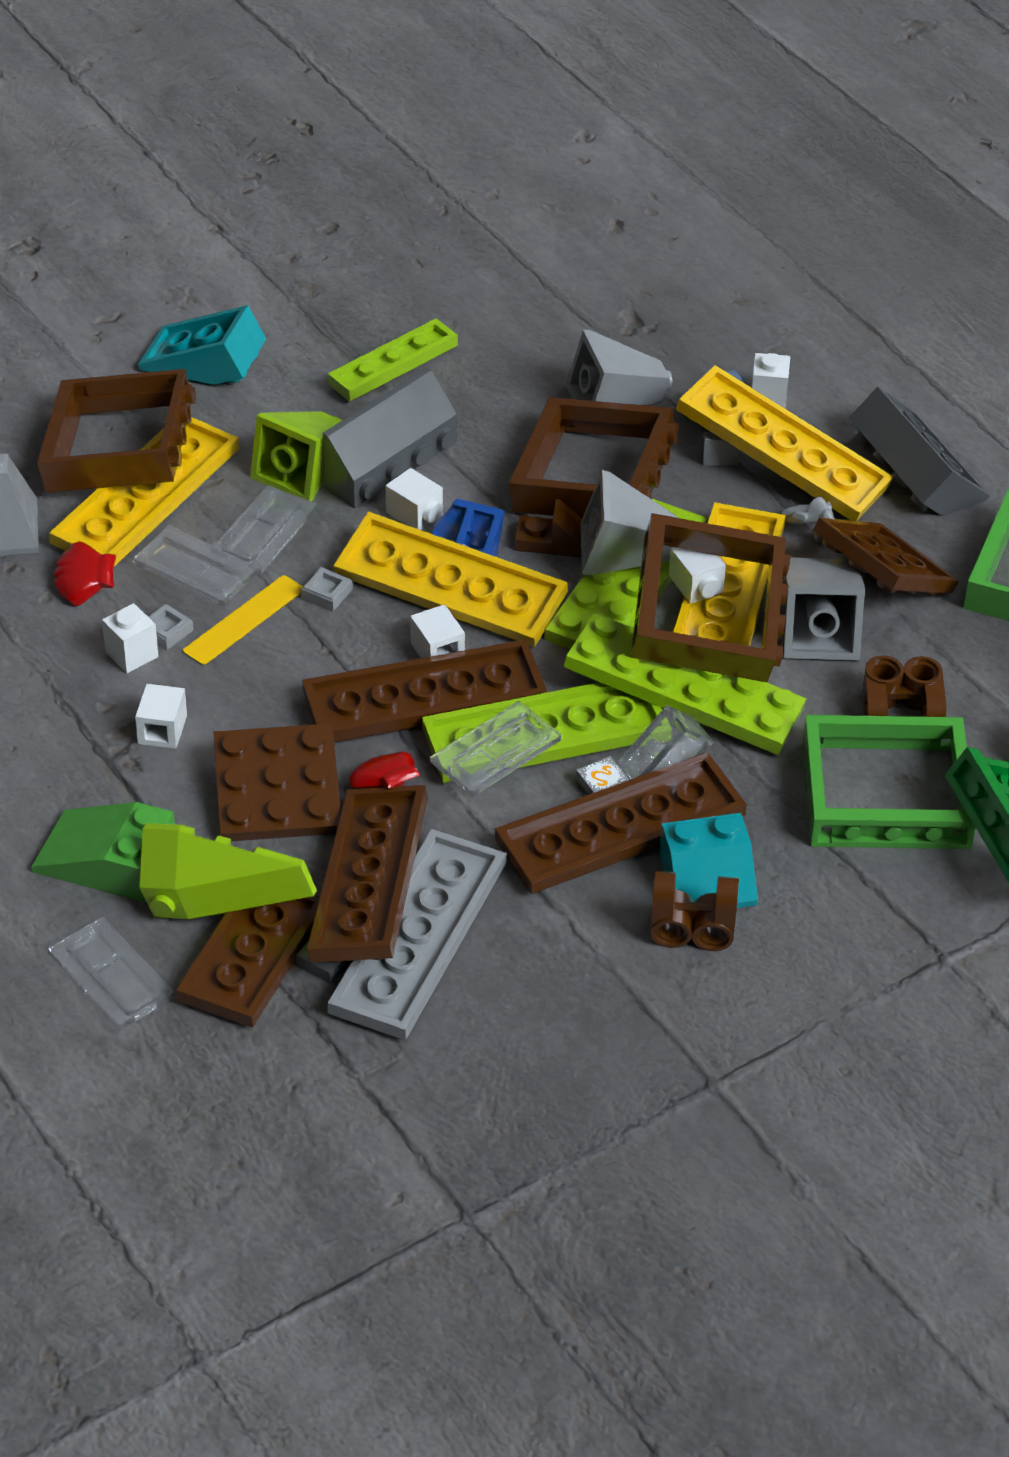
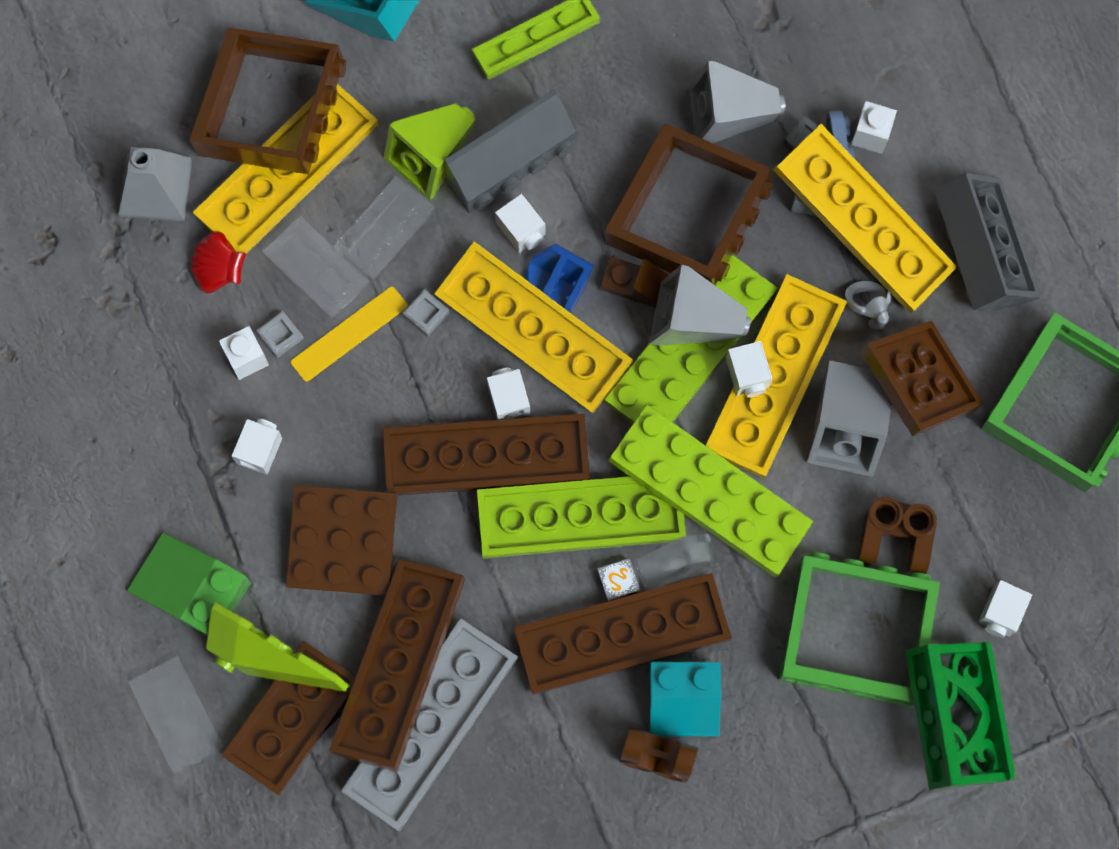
camera: 10 degrees right, 30 degrees up
(384, 771) = (434, 543): red animal -> none
(495, 748) = (530, 544): clear piece -> none
(701, 652) = (695, 404): reddish brown window -> none

